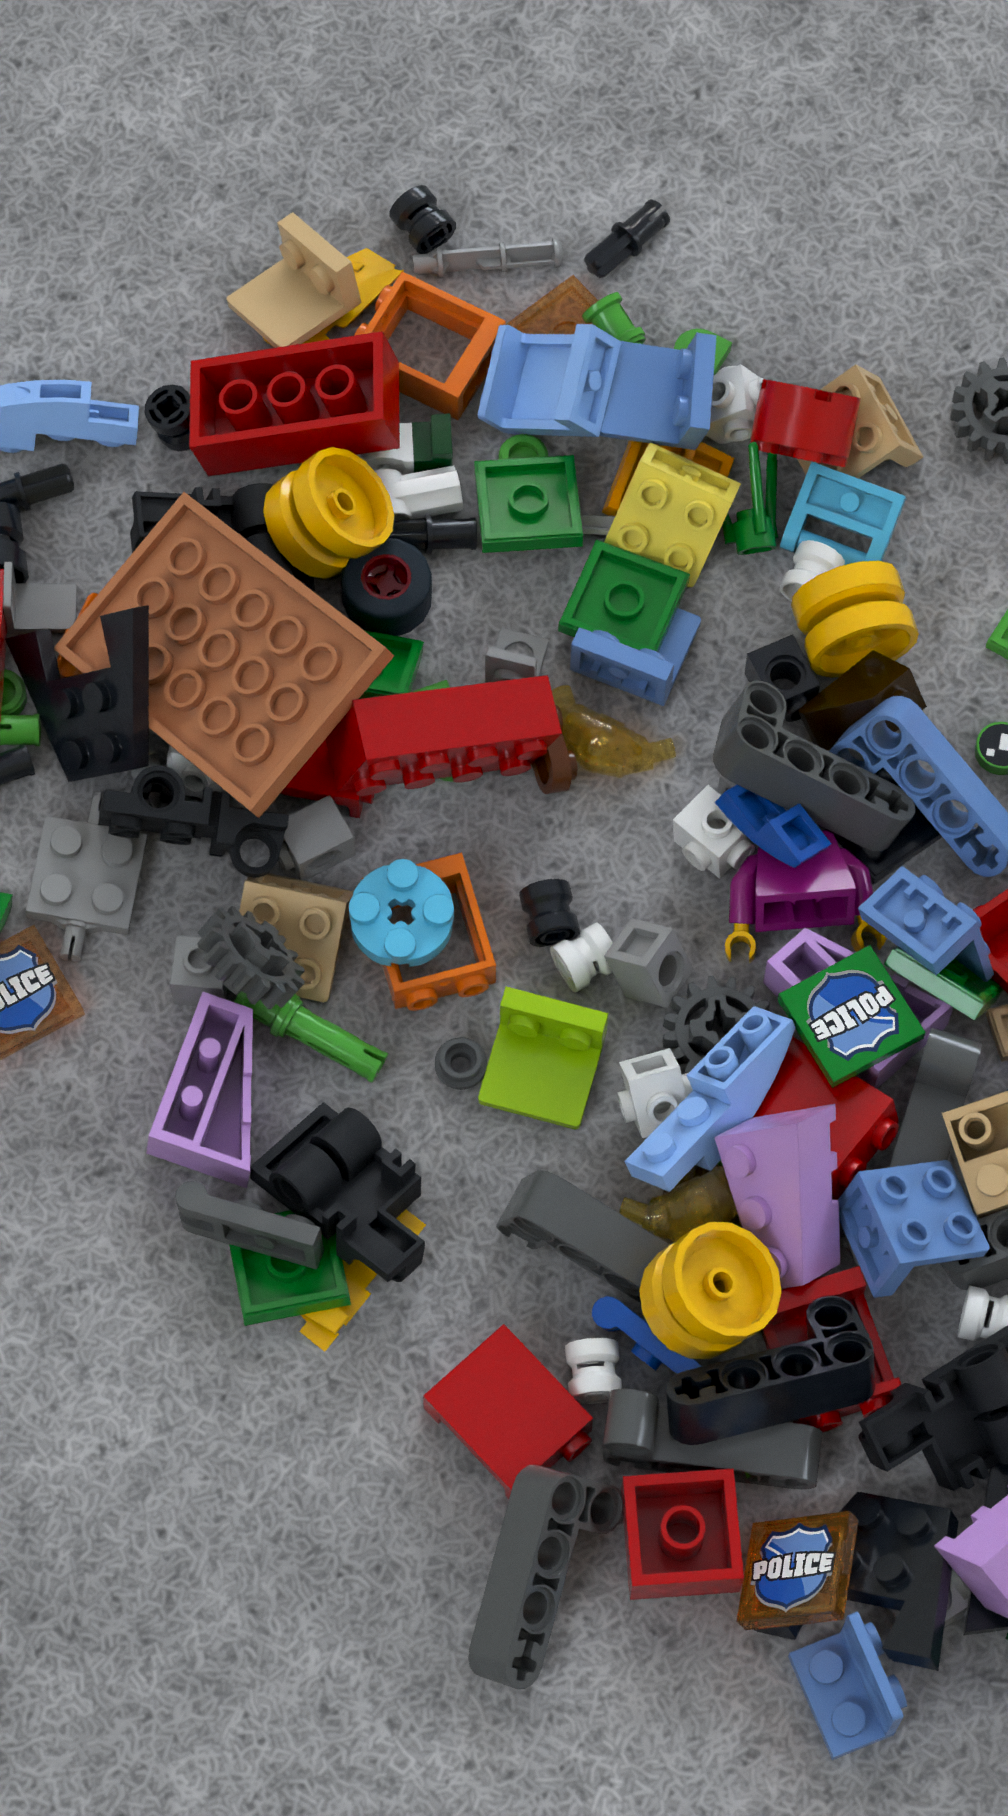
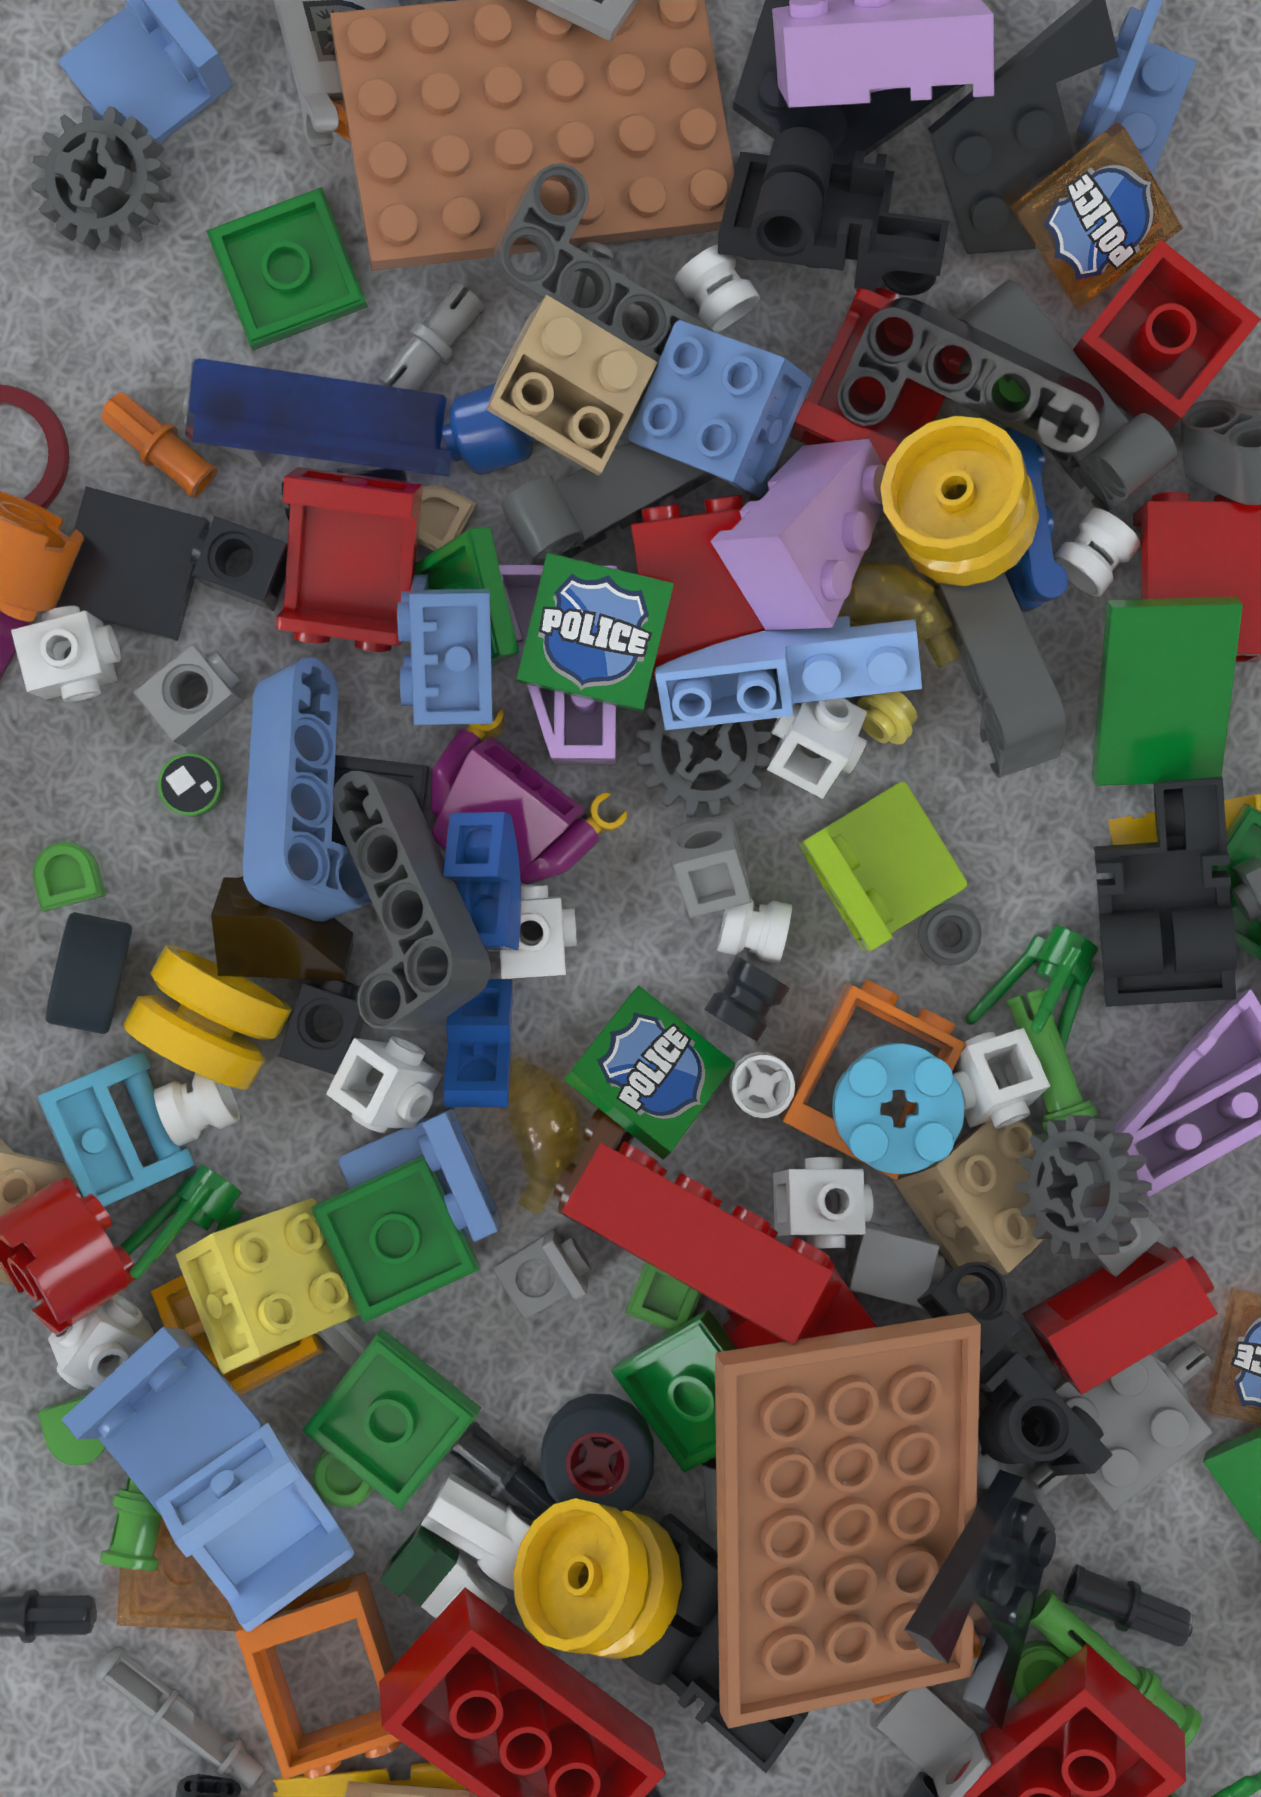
camera: 140 degrees left, 20 degrees up
(152, 914) = (1116, 1321): none -> red window
(373, 998) = (999, 1078): none -> white brick
(374, 1099) = (1063, 963): none -> green plant
(392, 814) = (802, 1197): none -> white brick
(470, 1312) = (1165, 689): none -> green tile
(493, 860) = (765, 1093): none -> white wheel
(567, 818) = (650, 1072): none -> tile
(620, 1150) = (888, 717): none -> light yellow plate
(679, 744) = (480, 1049): none -> blue slope
(715, 673) = (385, 1084): none -> white brick
(948, 588) = (88, 973): none -> black wheel

